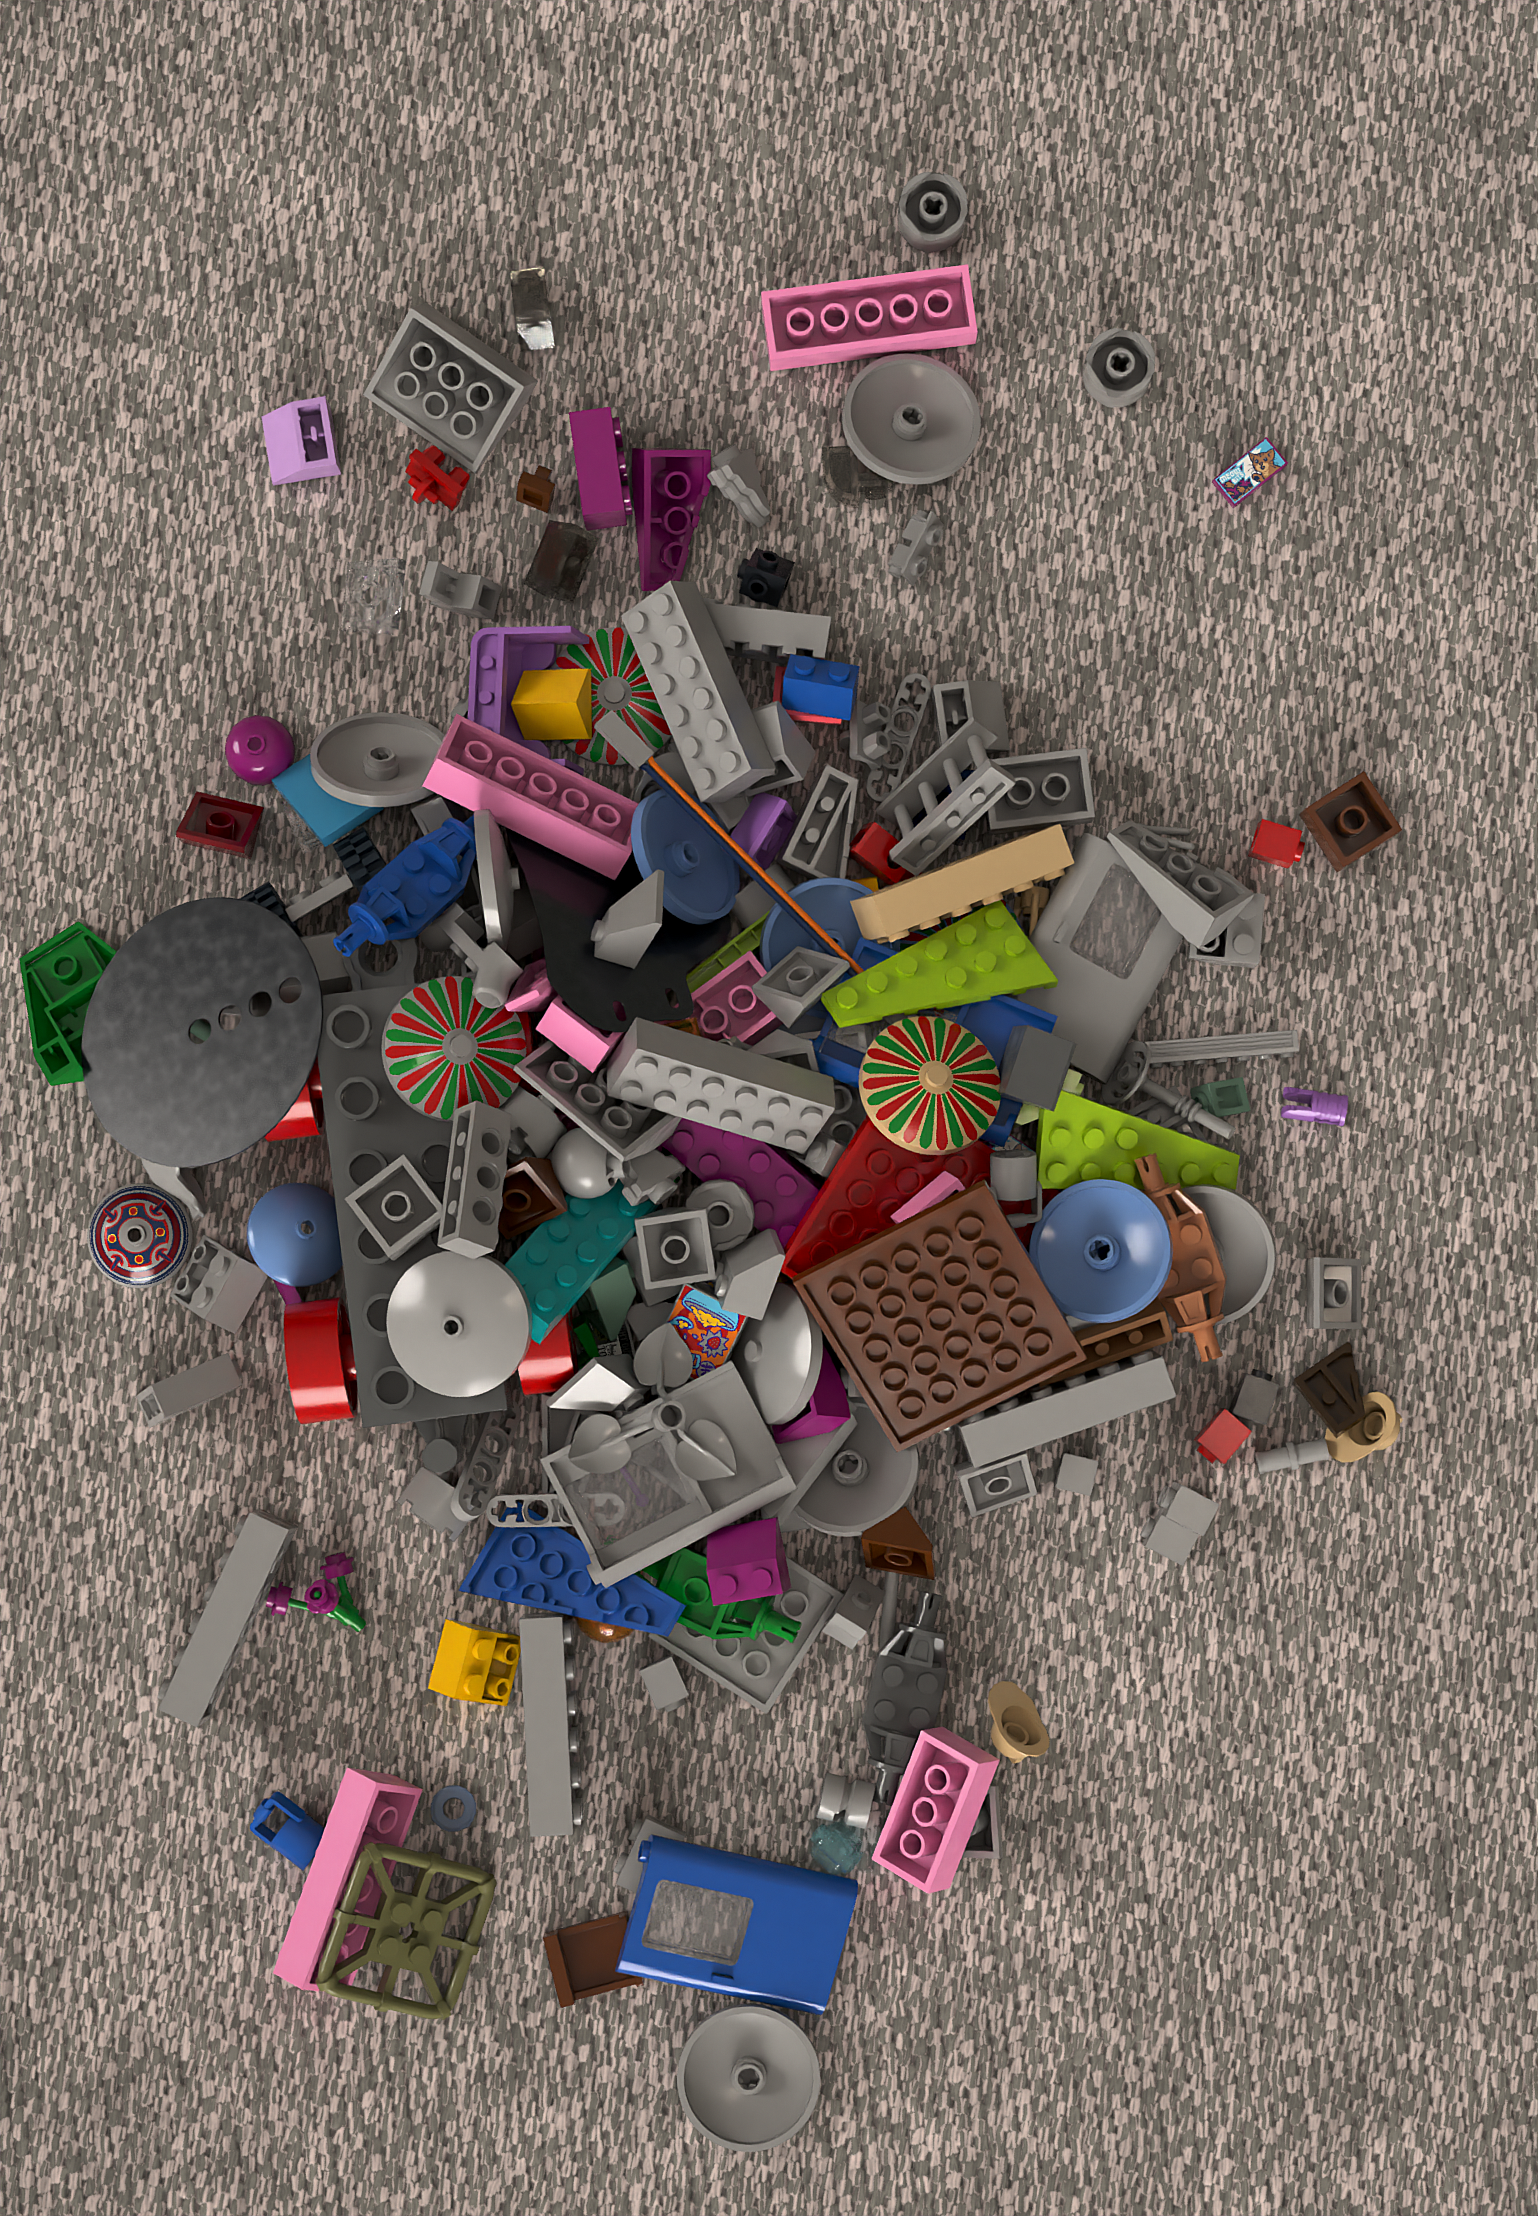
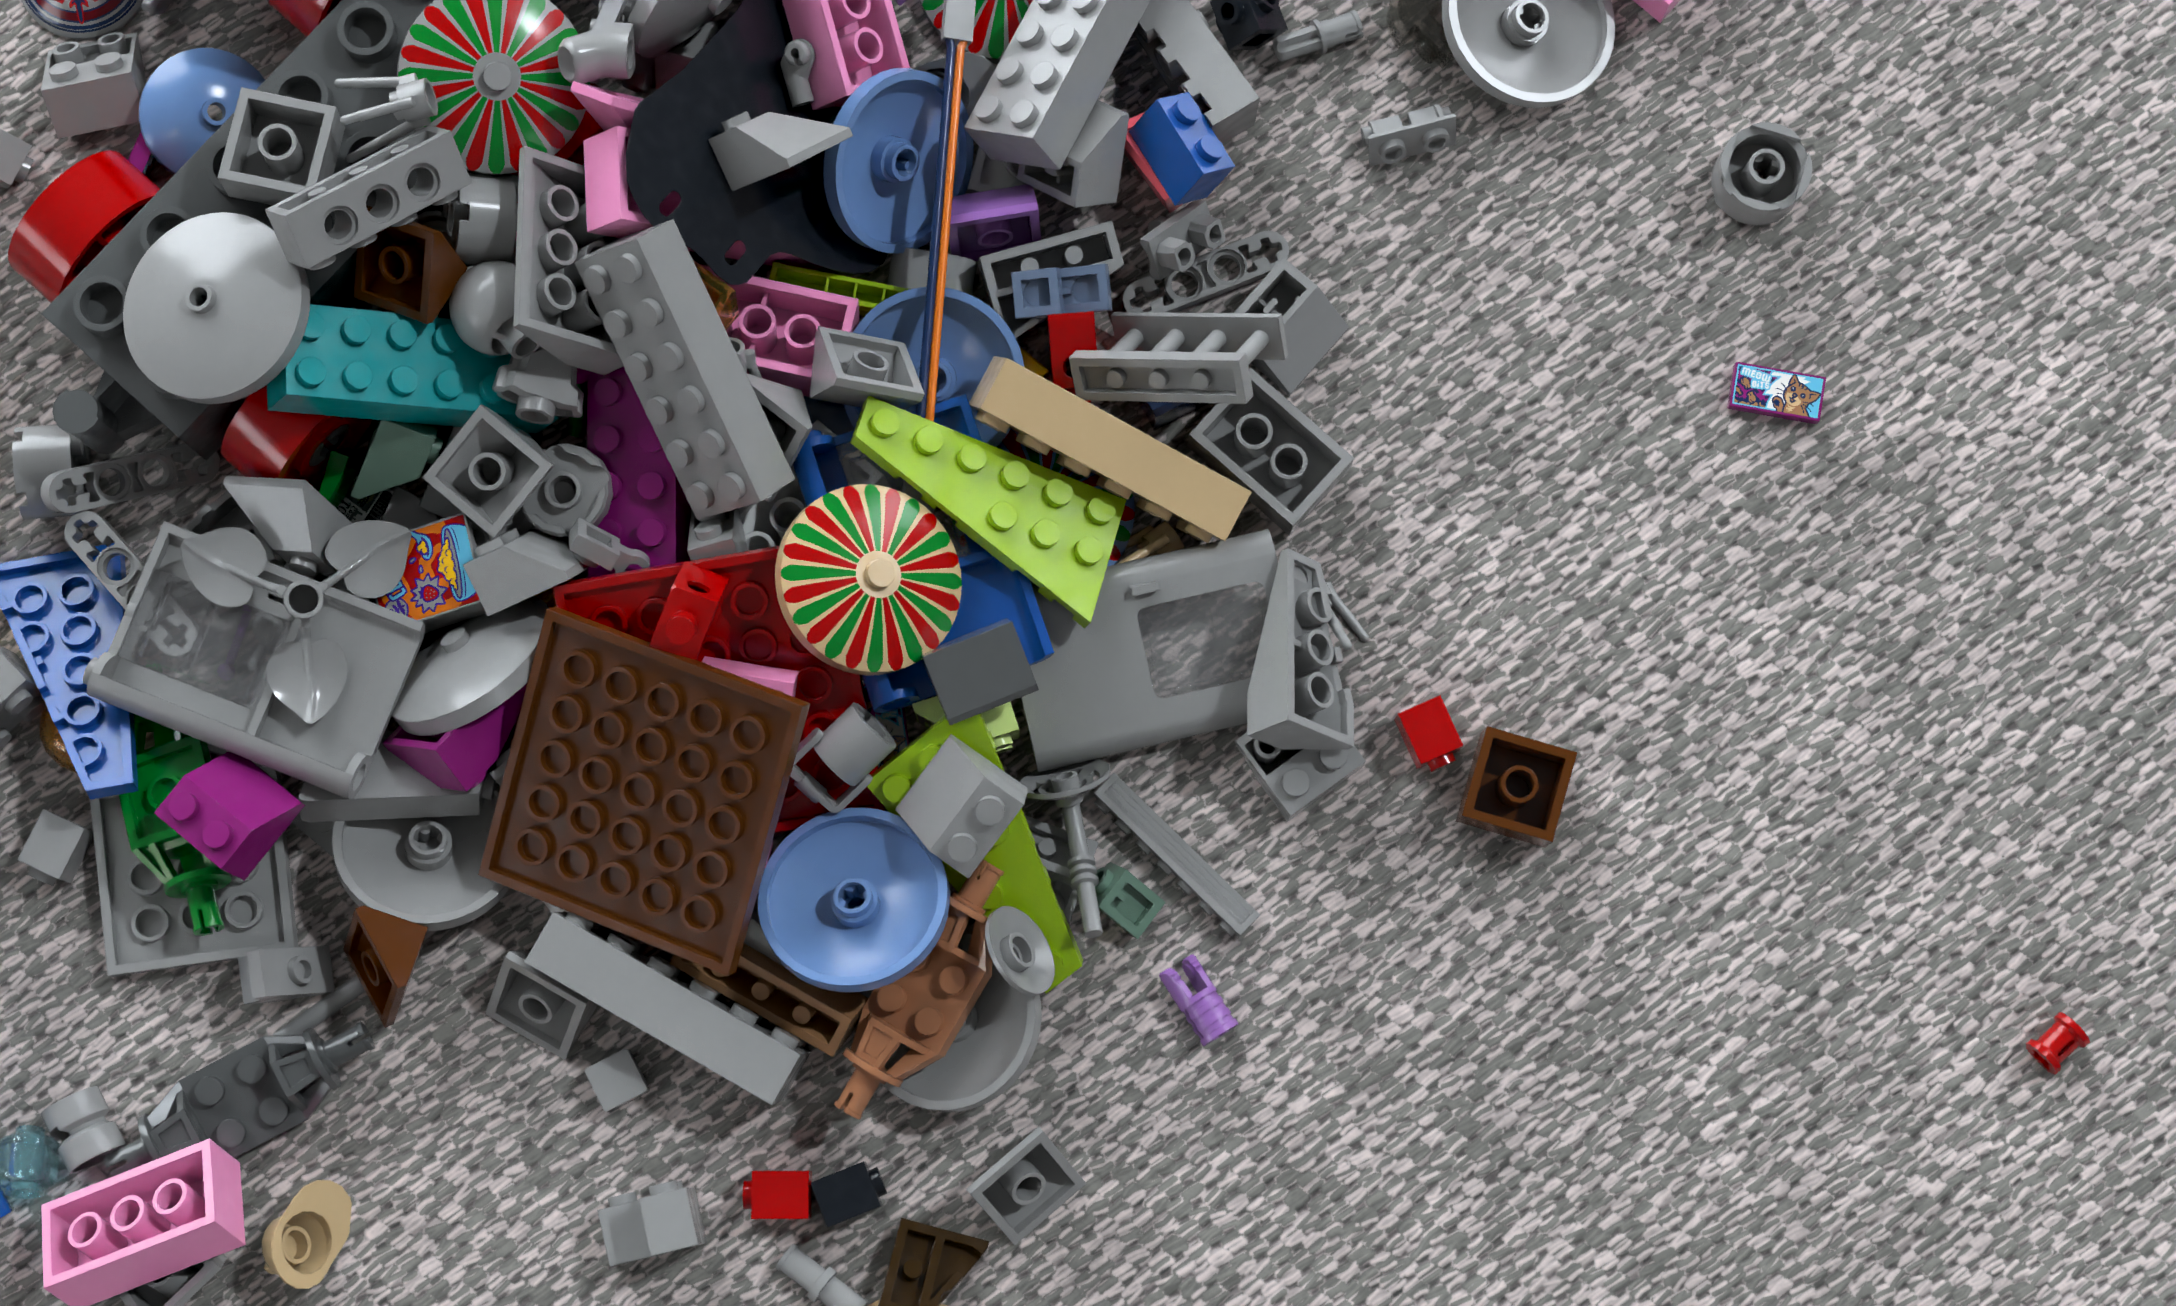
camera: 45 degrees right, 5 degrees down
(437, 1110) = (411, 101): none -> light grey plant
(586, 870) = (796, 68): none -> light grey arm
(774, 1222) = (597, 547): none -> light grey plate
(812, 547) = (1319, 36): none -> light grey axle
(844, 829) = (1061, 290): none -> sand blue slope
(867, 1208) = (689, 612): none -> red torso
(1102, 1144) = (961, 805): none -> light grey slope
(1208, 1182) = (1019, 950): none -> light grey dish

